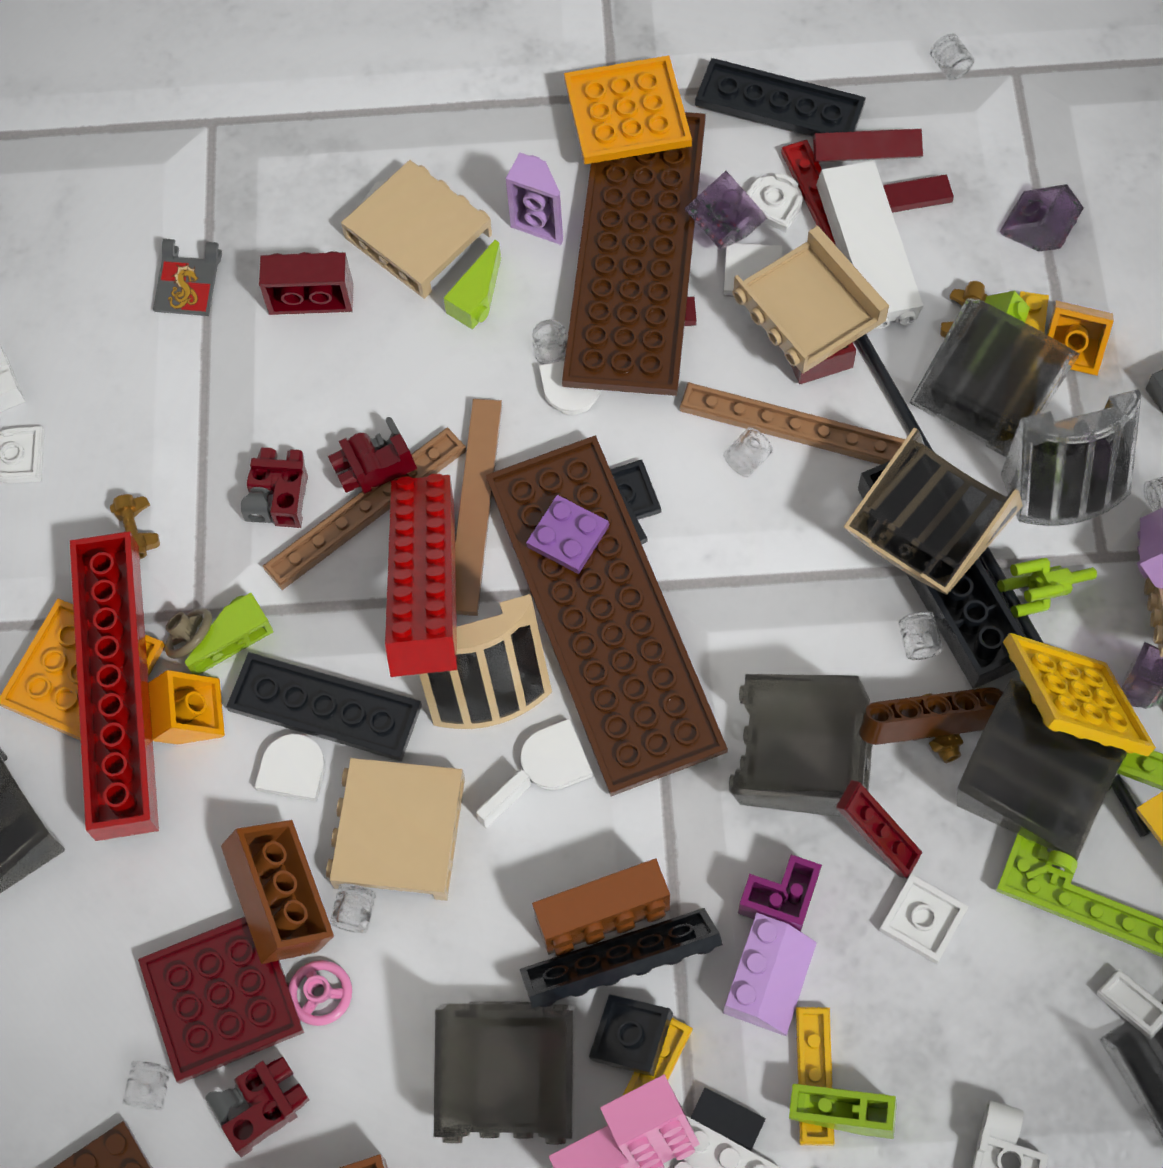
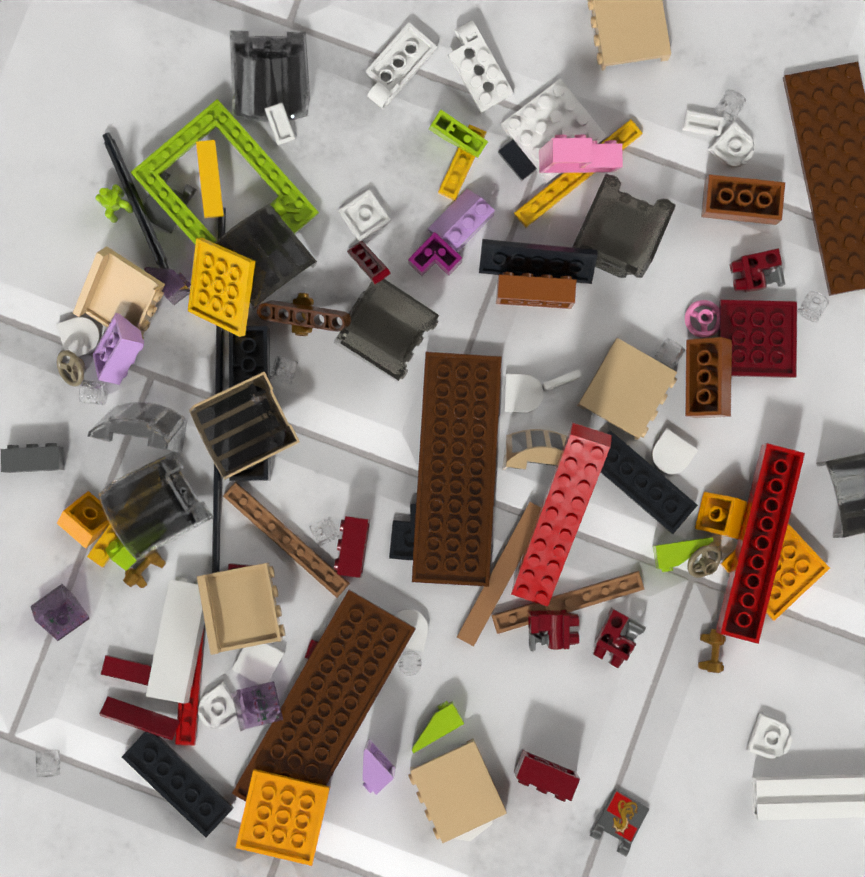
camera: 160 degrees left, 20 degrees up
(567, 534) = (457, 522): medium lavender plate -> none
(631, 1035) = (548, 220): black plate -> none
(699, 443) = (352, 547): none -> dark red brick
(1043, 584) = (197, 367): lime plant -> none

